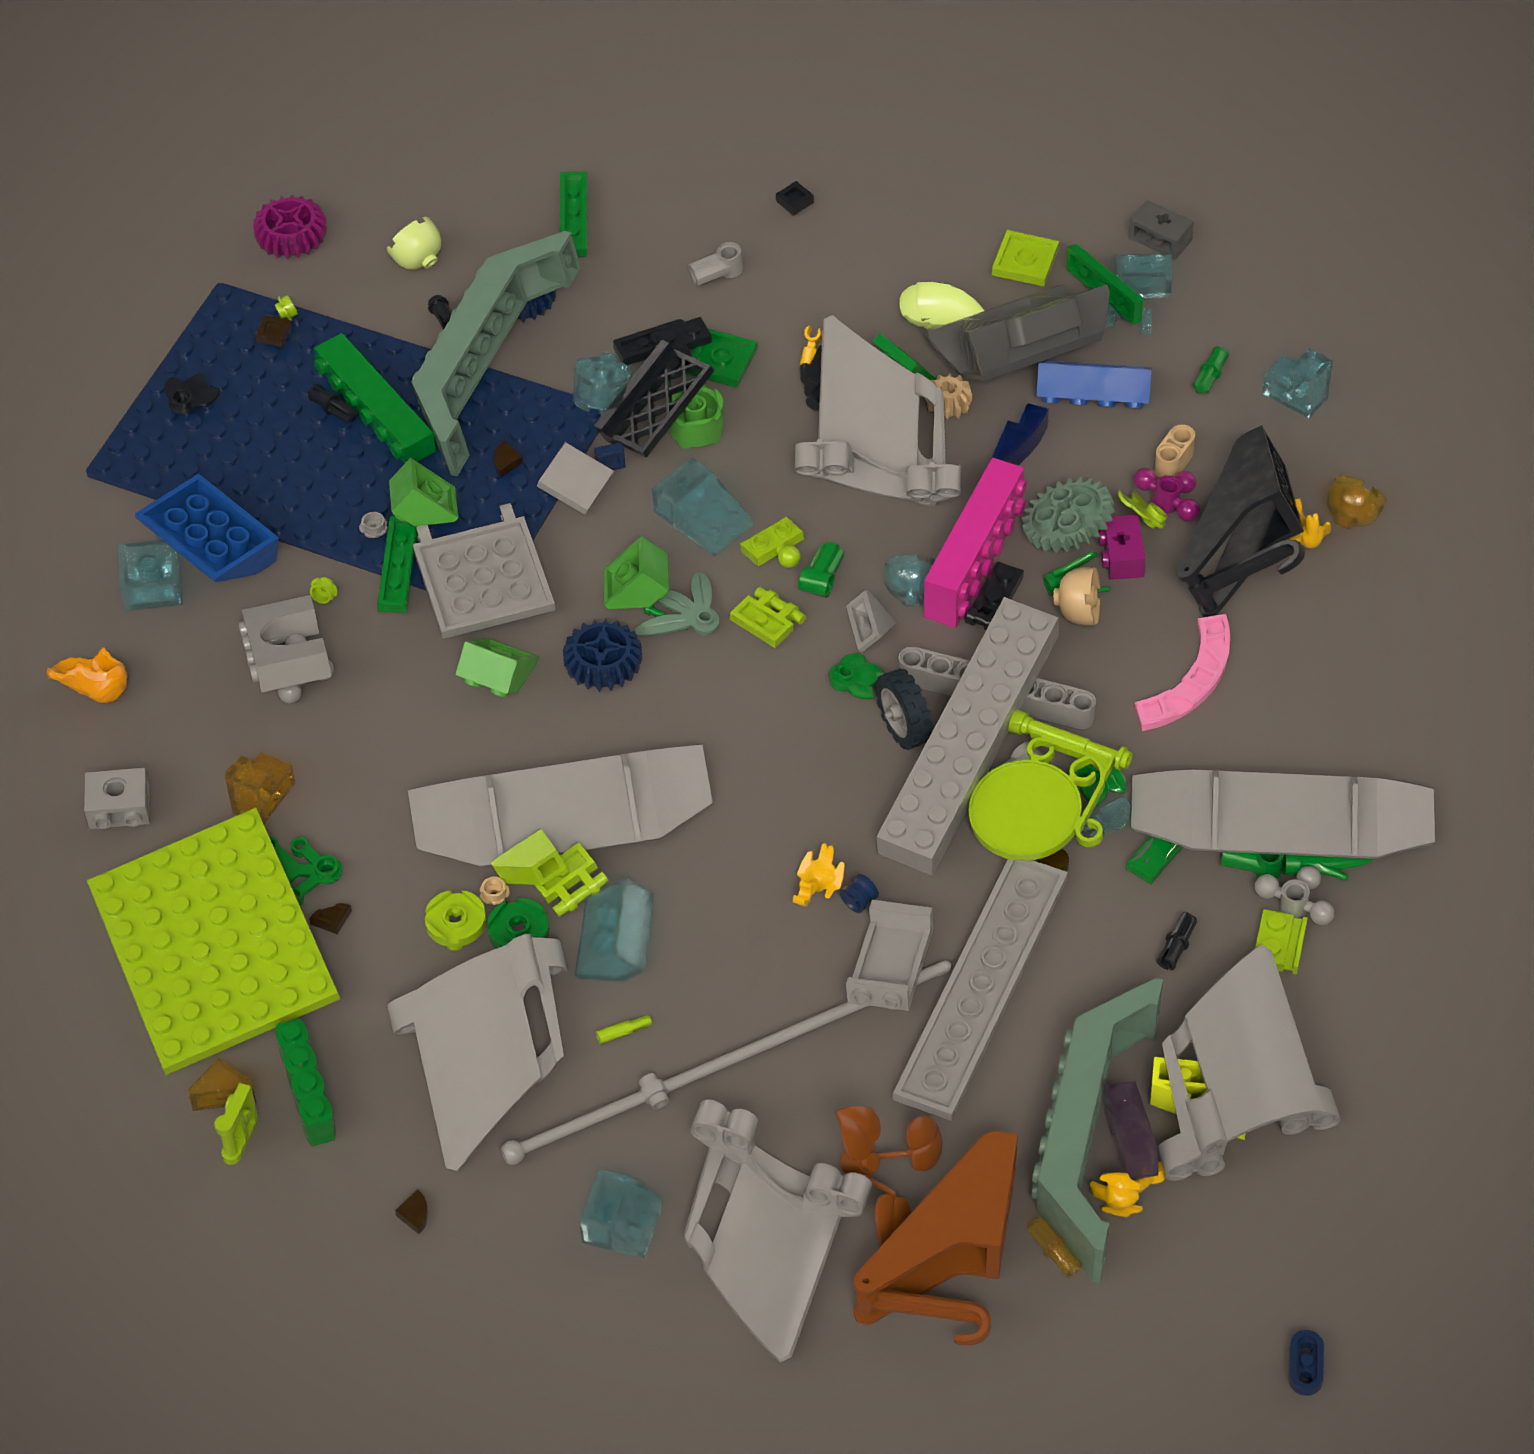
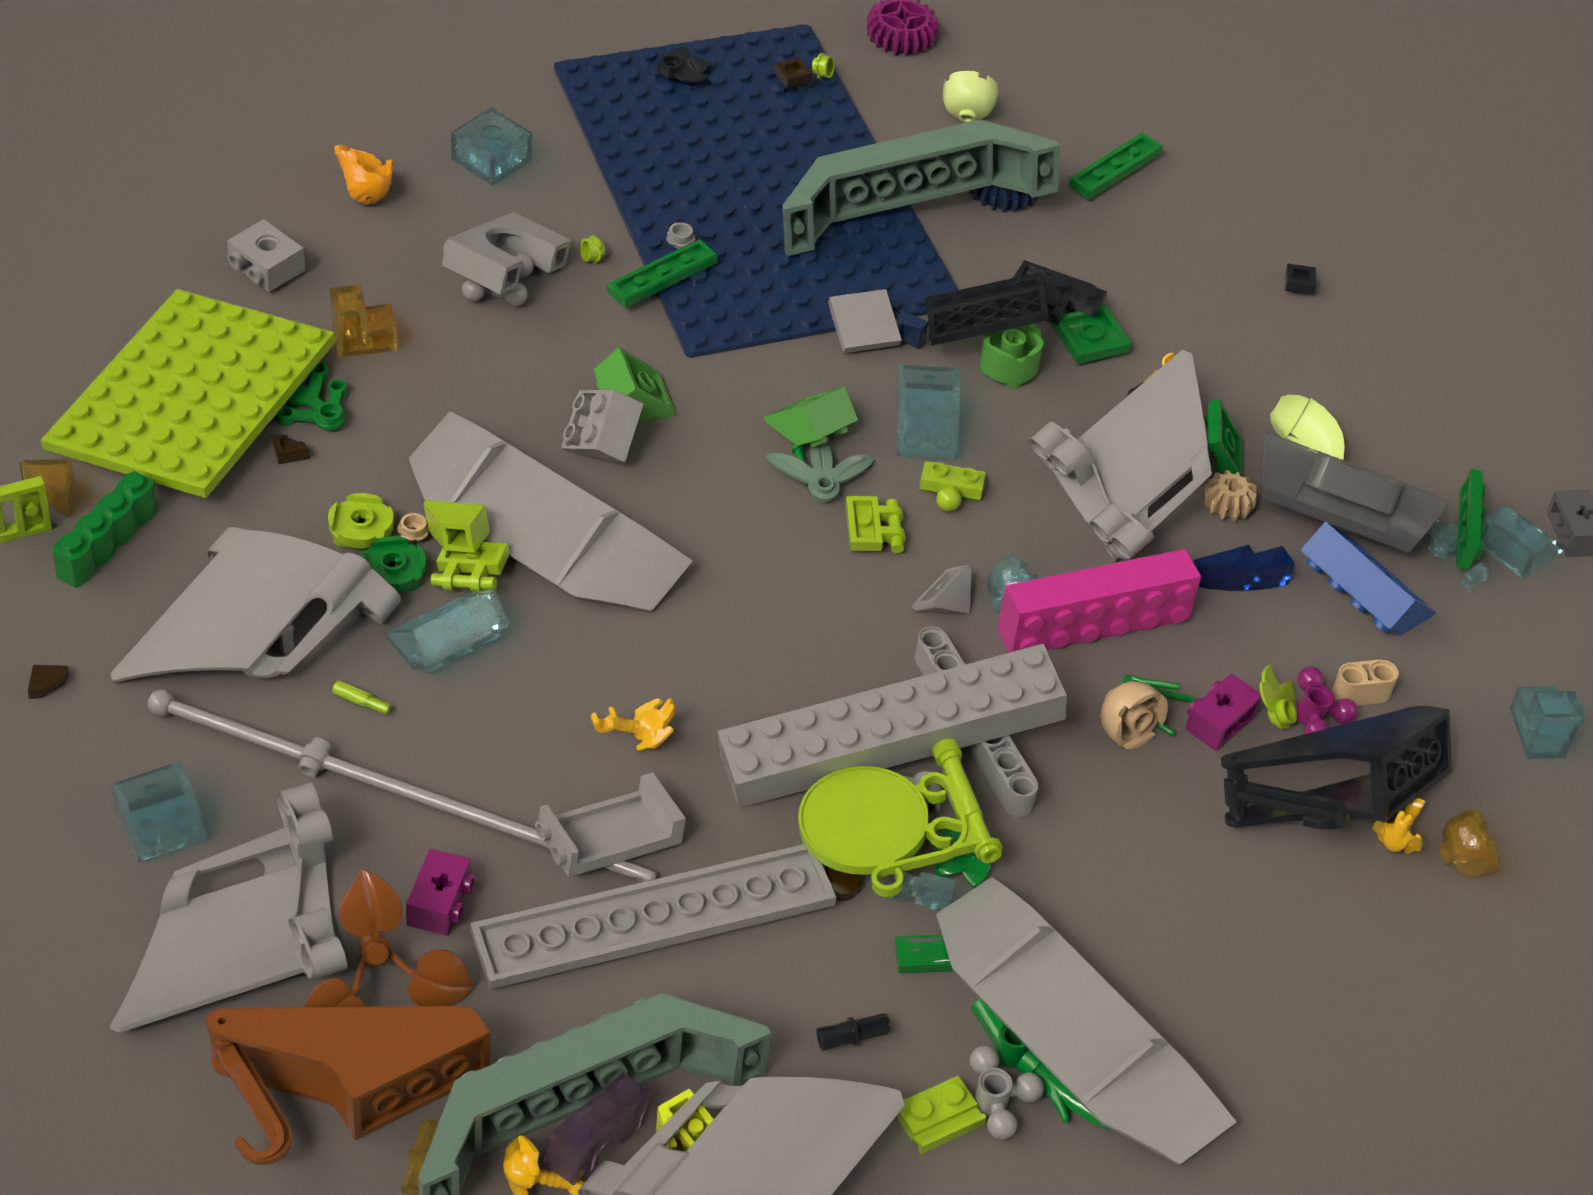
camera: 40 degrees right, 5 degrees down
(211, 530) = (559, 147): blue slope -> none
(332, 403) = (765, 143): black axle -> none
(374, 399) = (795, 155): green brick -> none
(422, 496) = (735, 241): bright green slope -> none
(483, 575) = (705, 325): light grey plate -> none
(506, 458) = (833, 270): dark brown tile -> none
(520, 707) = (602, 425): none -> light grey slope
(599, 381) = (968, 268): clear light blue brick -> none
(602, 654) = (715, 453): dark blue gear -> none
(724, 263) = (1183, 276): light grey piece -> none
(820, 575) = (950, 531): green piece -> none
(844, 1085) = (439, 892): none -> magenta brick
(855, 676) = (884, 620): green plate -> none
(859, 893) = (659, 763): dark blue wheel -> none
(903, 708) = (870, 657): black wheel -> none
(1001, 583) = (1083, 658): black plate -> none
(1025, 258) = (1432, 455): lime plate -> none
(1068, 515) = (1206, 649): sand green gear -> none
(1197, 683) = (1151, 863): bright pink tile -> none
(1211, 370) = (1483, 653): green axle -> none

